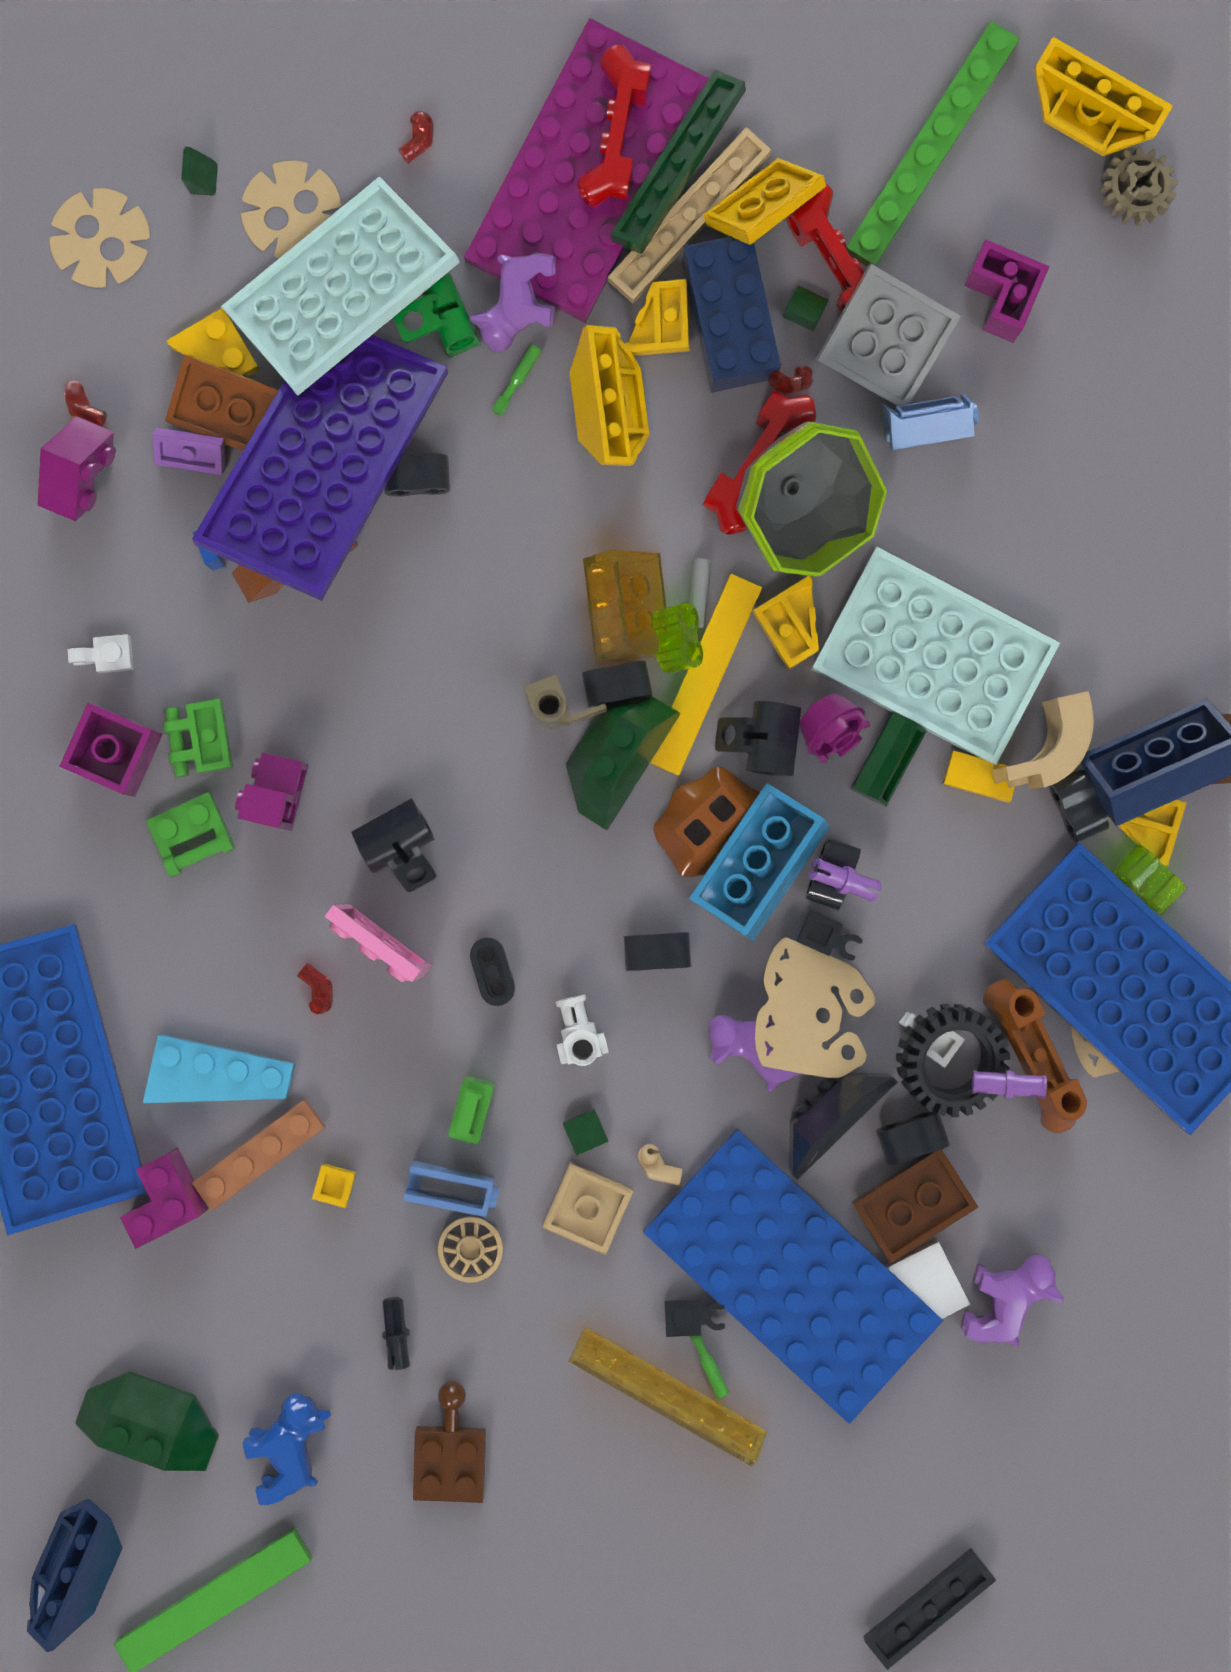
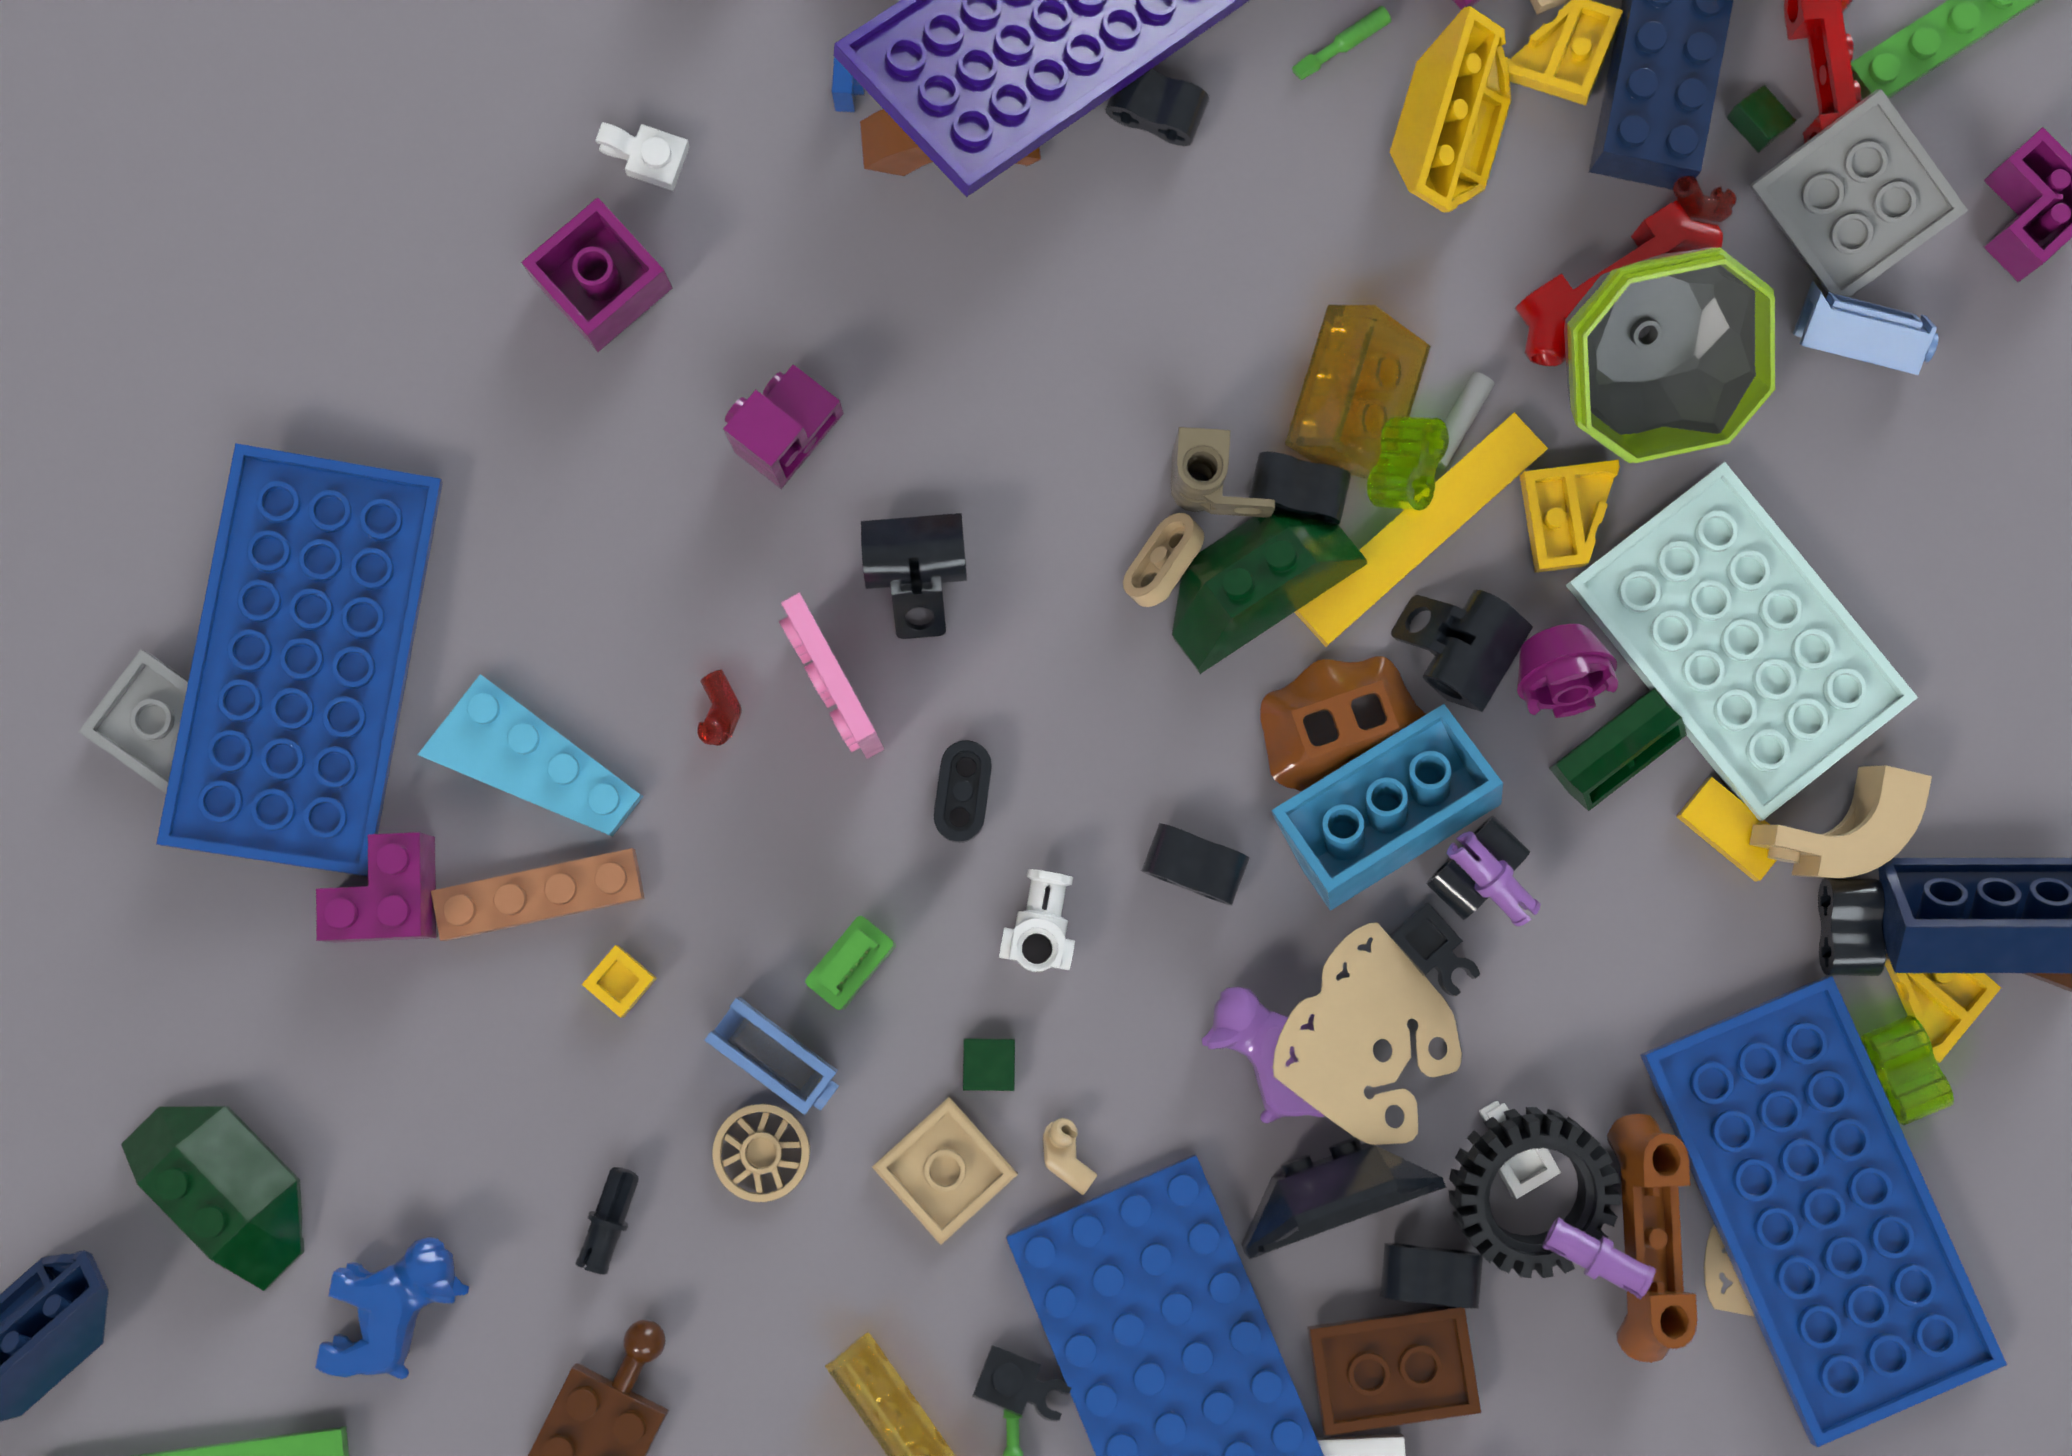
camera: 20 degrees right, 5 degrees down
(185, 824) = (647, 416): bright green plate -> none
(208, 738) = (730, 318): bright green plate -> none
(552, 769) = (1163, 560): none -> tan plate

